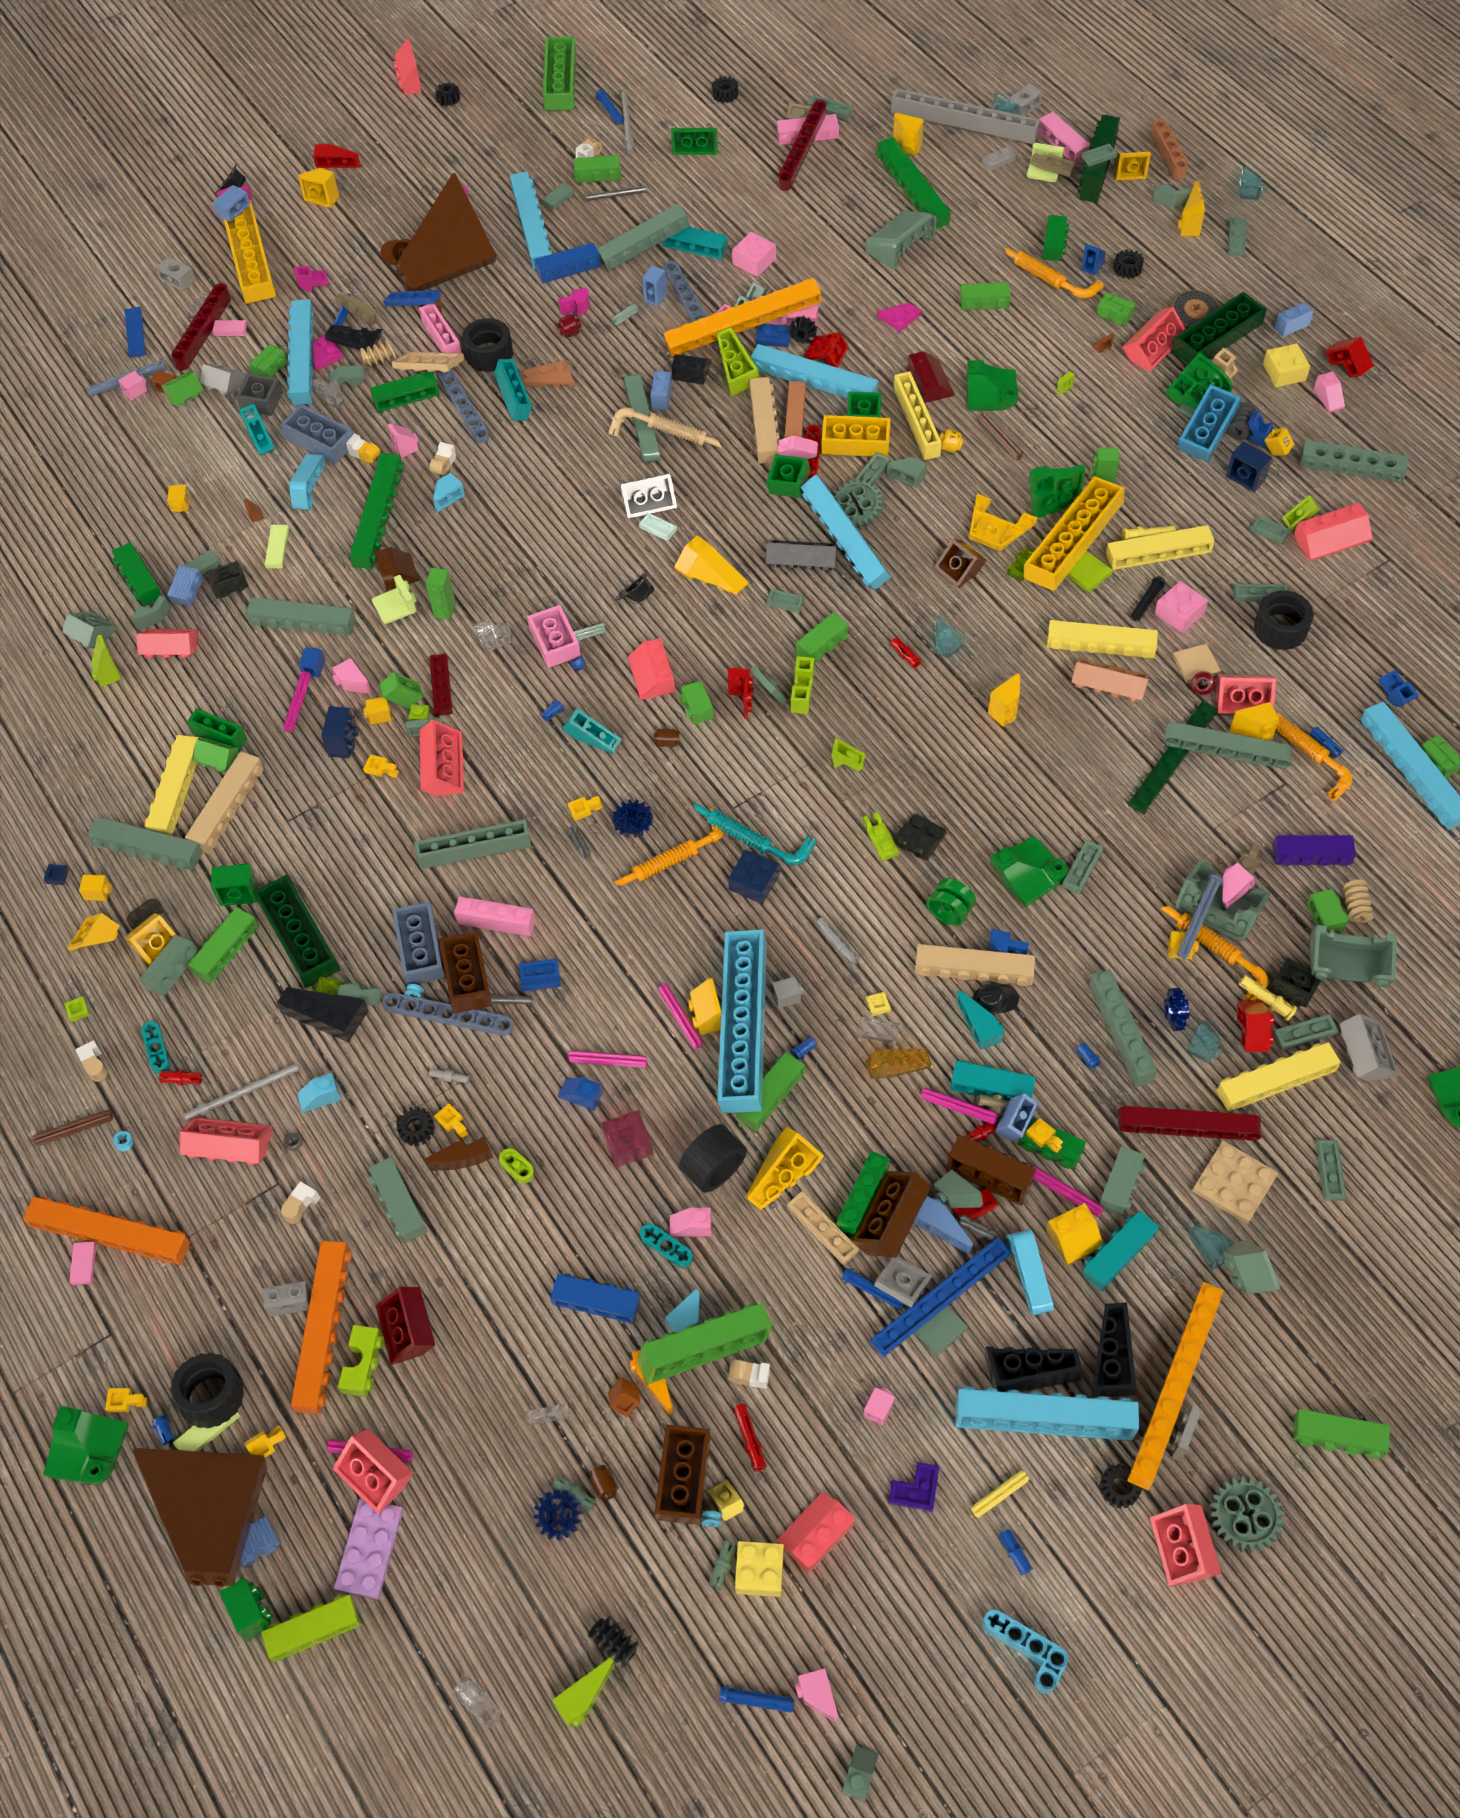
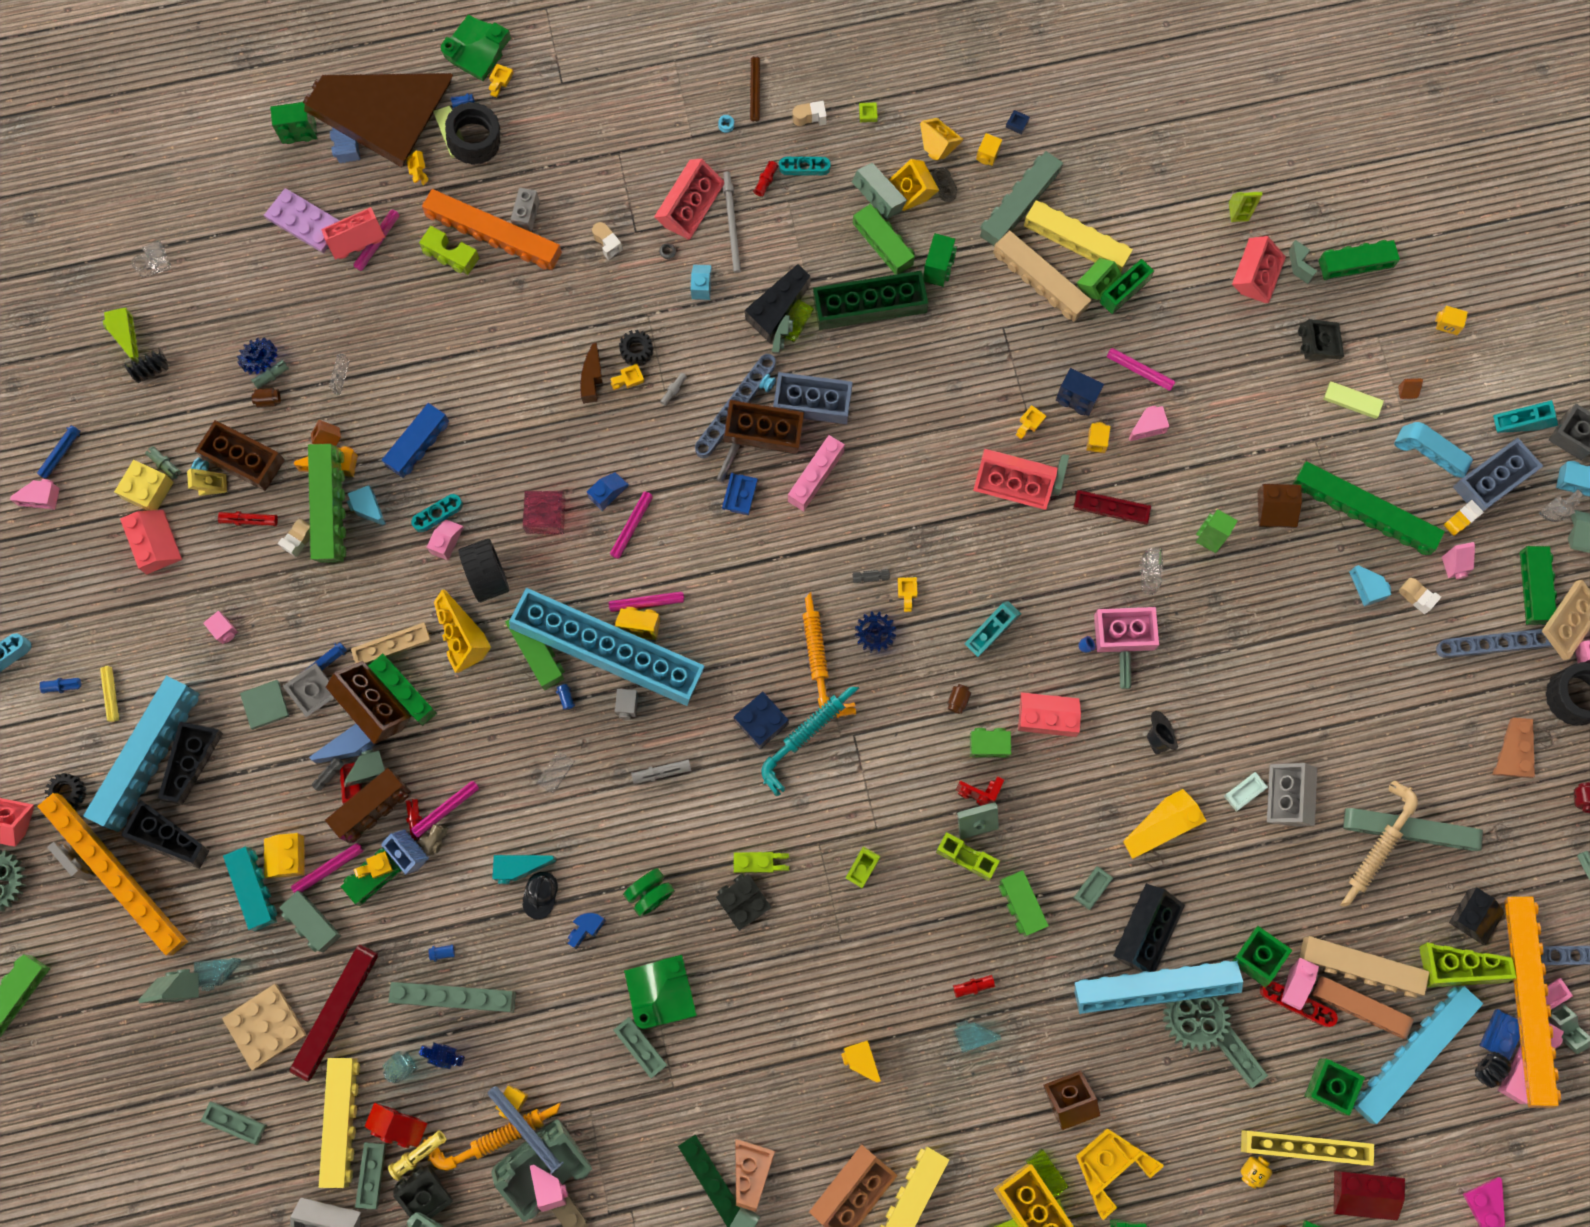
camera: 110 degrees right, 15 degrees up
(82, 1263) = (629, 73): bright pink tile -> none
(86, 627) = (1302, 203): sand green slope -> none
(107, 1230) = (647, 94): orange brick -> none
(185, 585) = (1324, 299): medium blue brick -> none
(204, 562) = (1353, 323): sand green tile -> none
(300, 616) = (1246, 397): sand green brick -> none
(311, 1628) = (263, 165): lime brick -> none
(312, 661) = (1183, 393): blue brick -> none
(395, 603) = (1232, 491): yellowish green bracket -> none
(397, 1199) = (573, 314): sand green brick -> none
(401, 690) = (1107, 461): bright green brick -> none
(405, 1324) = (462, 292): dark red slope -> none
(419, 712) = (1082, 476): lime plate -> none
(472, 844) = (901, 476): sand green brick -> none
(512, 390) = (1500, 699): teal brick -> none
(518, 1166) = (562, 416): lime plate -> none
(552, 710) = (1036, 601): blue pin -> none
(661, 390) = (1447, 866): medium blue brick -> none
(830, 346) = (1454, 1087): red bracket -> none
(855, 435) = (1298, 1060): yellow brick -> none
(878, 1004) = (582, 783): light yellow tile -> none
(897, 1062) = (512, 774): clear yellow slope -> none
(907, 471) = (1227, 1102): sand green slope -> none
(917, 1495) = (142, 631): dark purple tile -> none
(940, 1297) = (284, 717): blue tile -> none
(975, 965) = (578, 889): tan brick -> none
(988, 1081) = (453, 850): teal brick -> none
(1031, 1271) = (270, 799): medium azure beam -> none
(1137, 746) = (752, 1170): none -> nougat wing

